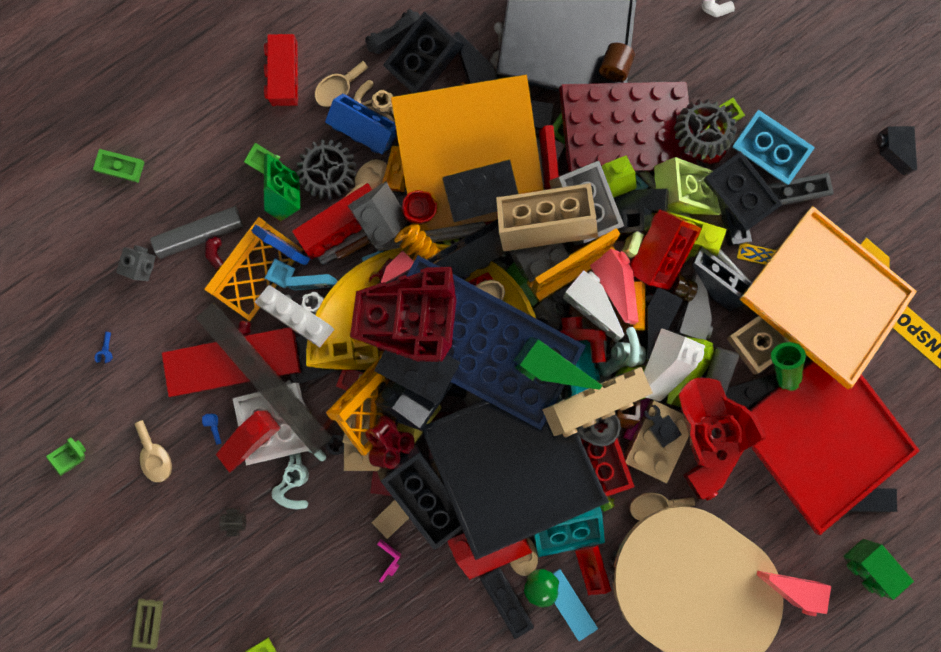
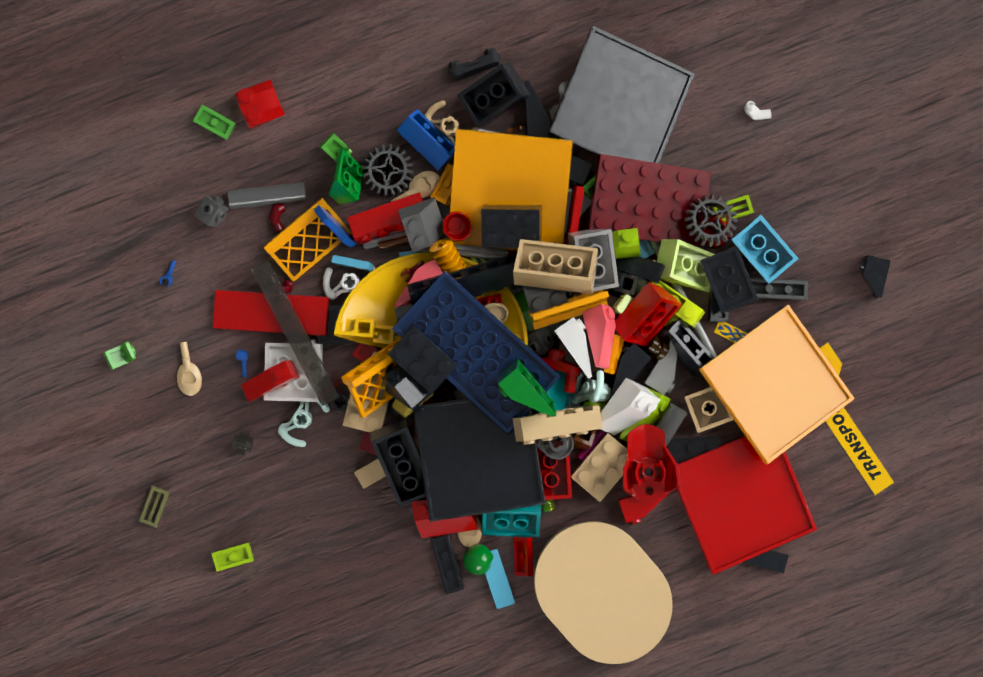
camera: 15 degrees right, 5 degrees up
(165, 134) = (259, 104): none -> red slope
(279, 272) = (328, 248): medium azure tile -> none
(281, 70) = (370, 74): red brick -> none
(294, 316) = (332, 289): white plate -> none
(336, 84) = (414, 99): tan piece -> none
(388, 443) = (383, 413): dark red piece -> none
(393, 566) = (363, 511): dark pink bracket -> none
(408, 315) = (425, 318): dark red wedge -> none
(617, 62) = (654, 143): reddish brown piece -> none
(649, 503) = (584, 514): tan piece -> none
(663, 428) = (608, 457): black plate -> none
(788, 364) = (721, 430): green plant -> none
(802, 593) = (686, 617): coral slope -> none
(877, 569) = (750, 612): green brick -> none

